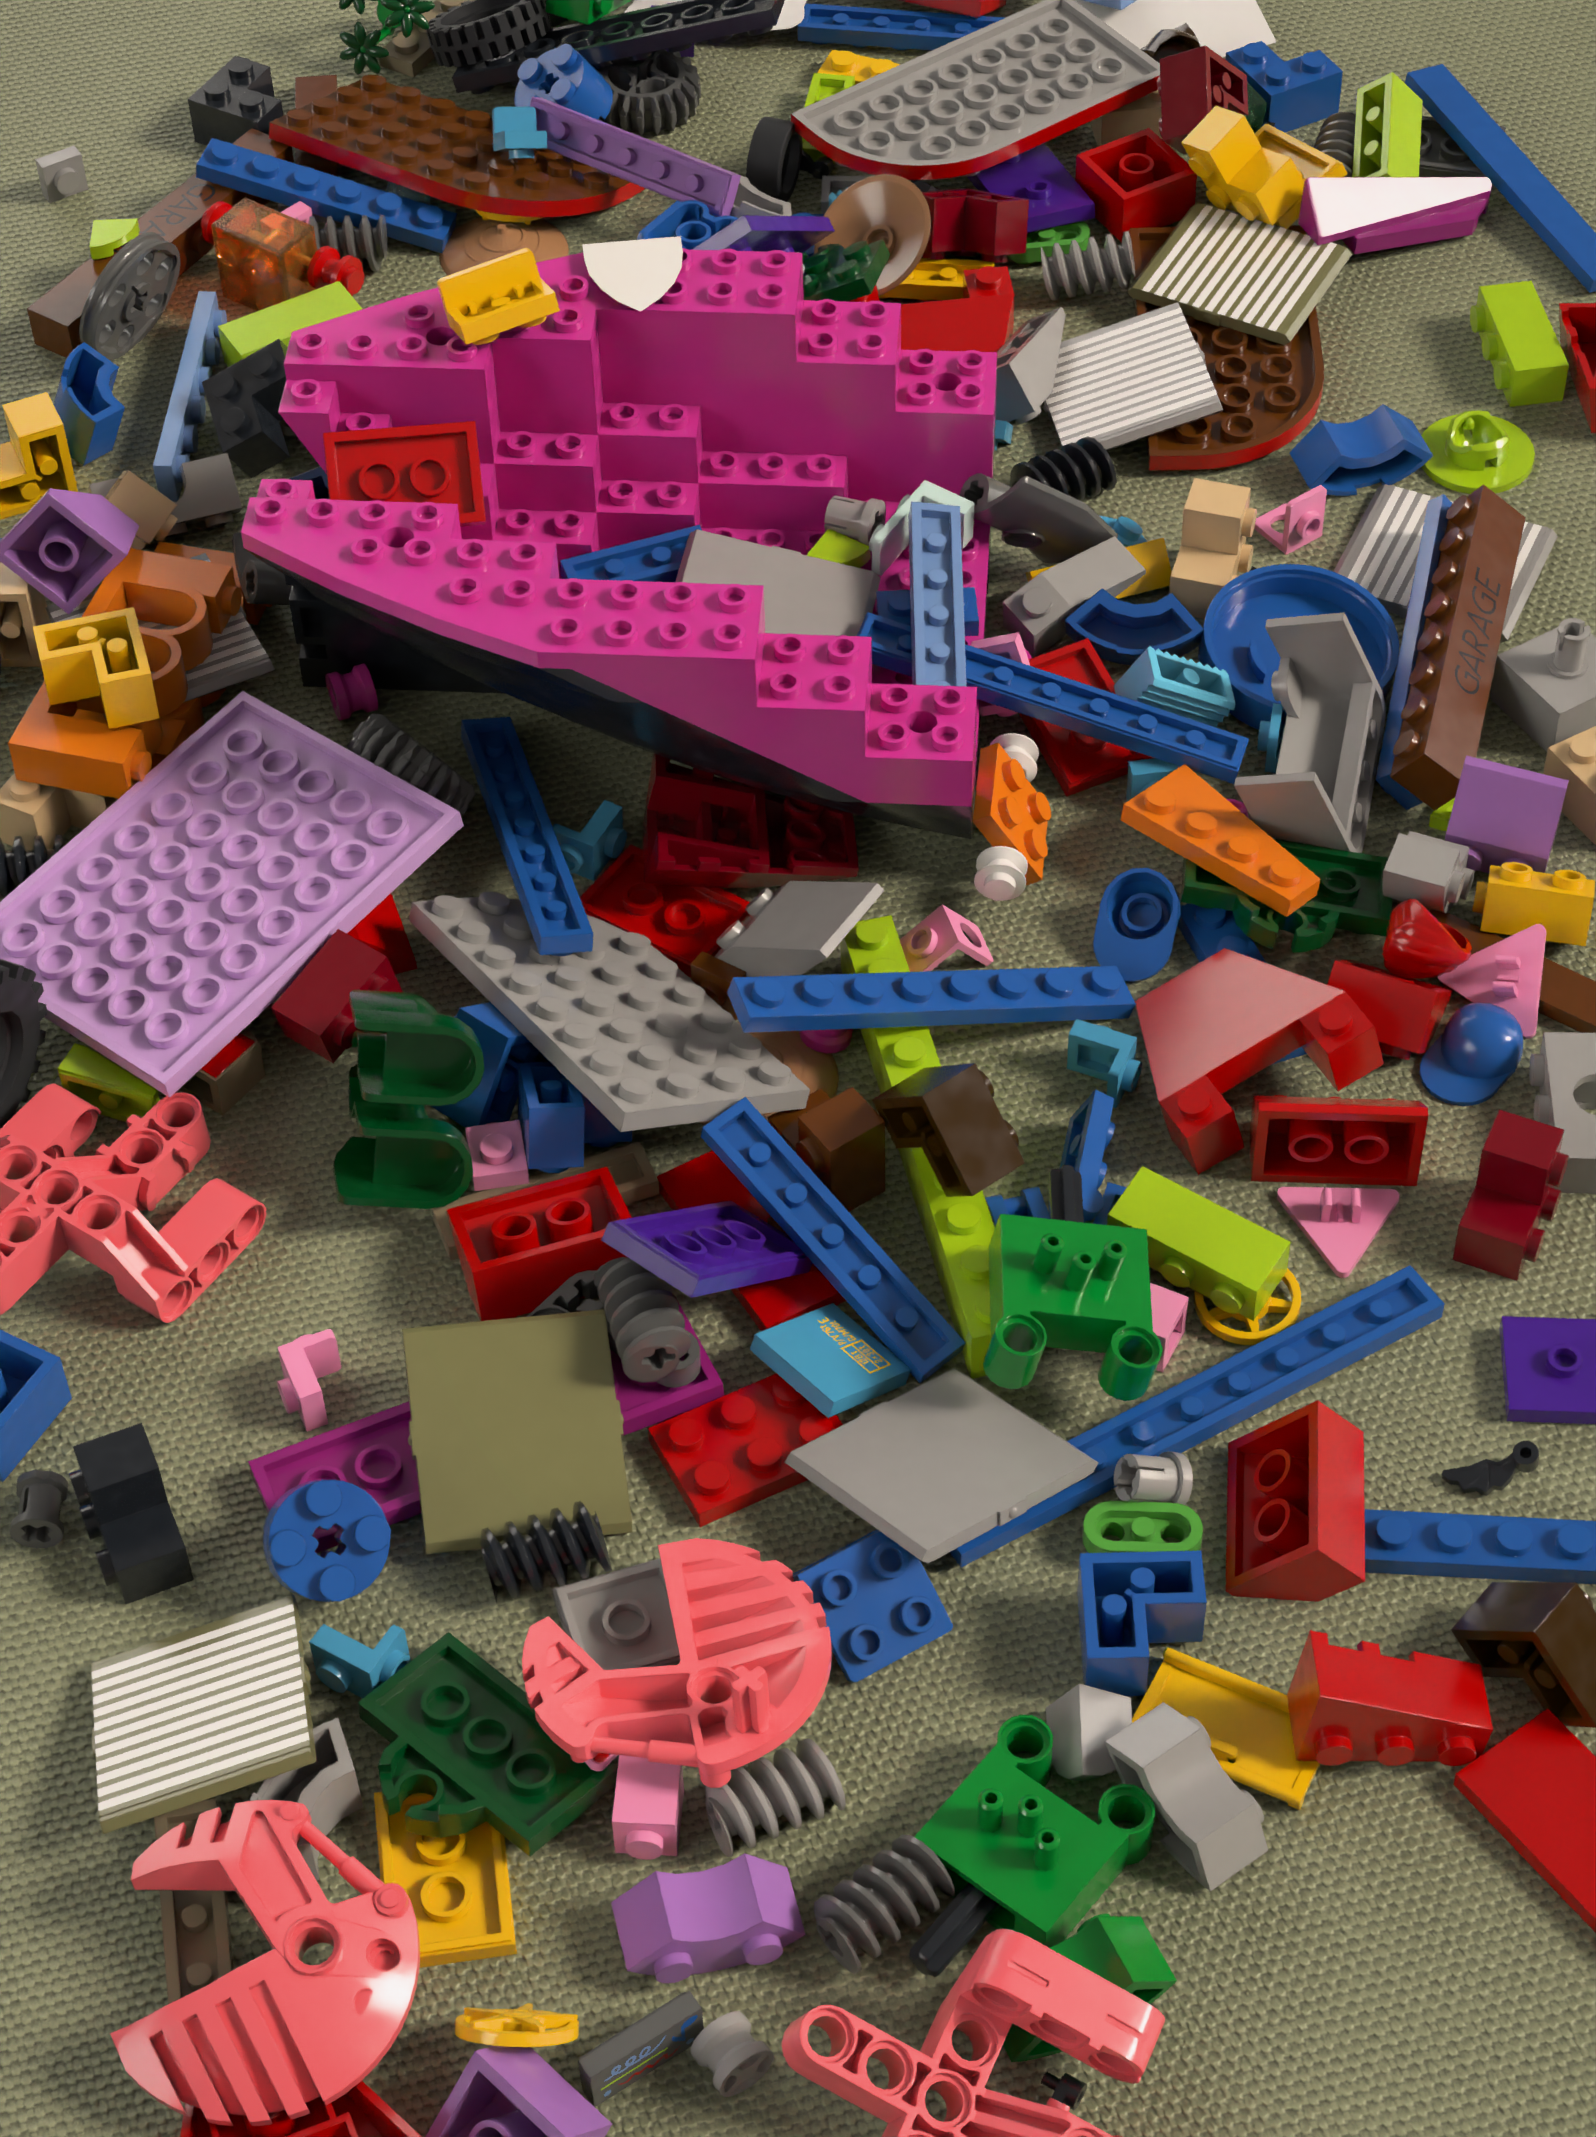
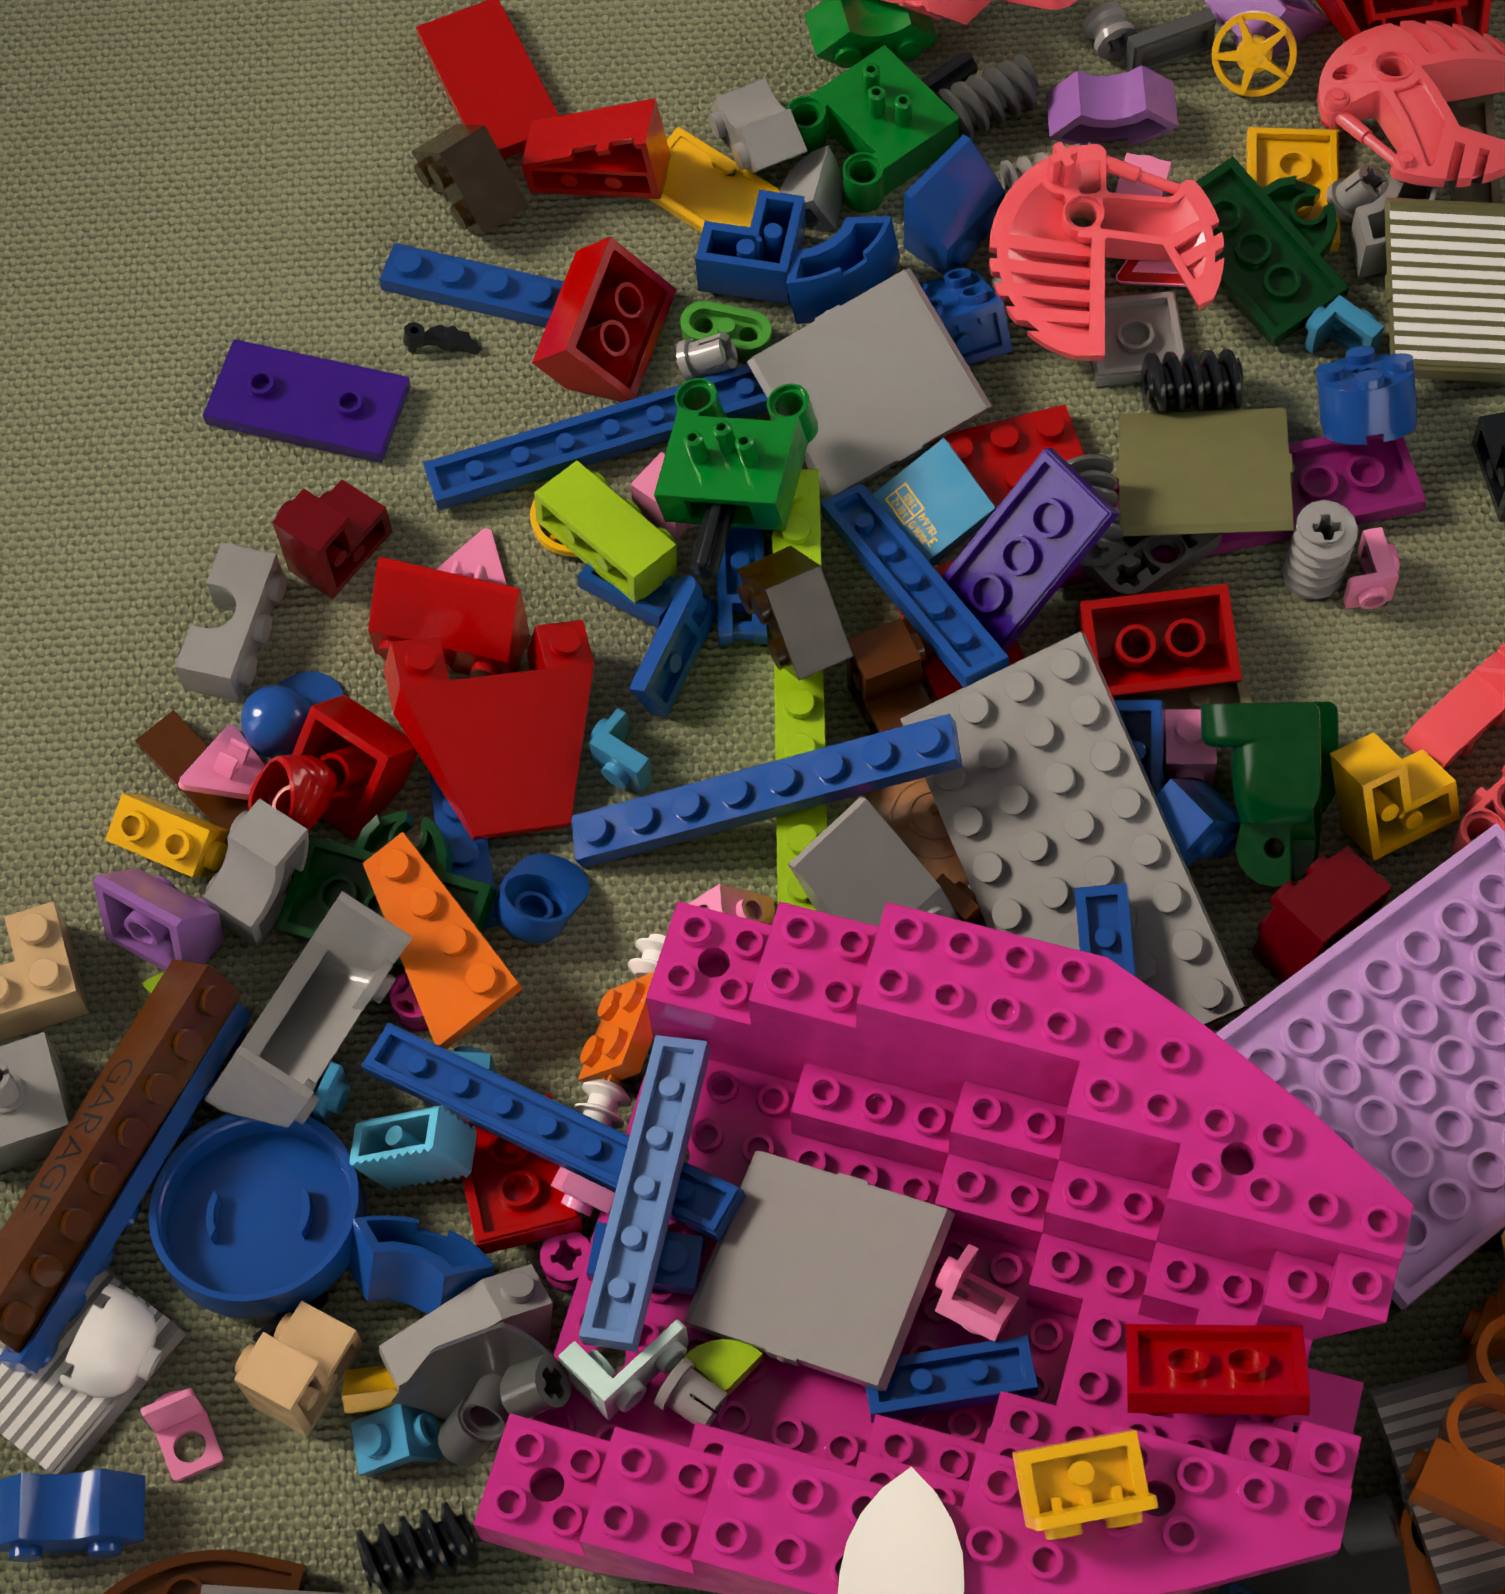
camera: 165 degrees left, 15 degrees up
(283, 1127) = (1388, 798): none -> yellow brick
(366, 1840) = (1356, 190): none -> light grey bush
(369, 1356) = (1319, 550): none -> light grey piece
(892, 1715) = (951, 207): none -> blue slope
(1021, 1596) = (842, 267): none -> blue brick
(1372, 526) = (113, 1347): none -> white cylinder

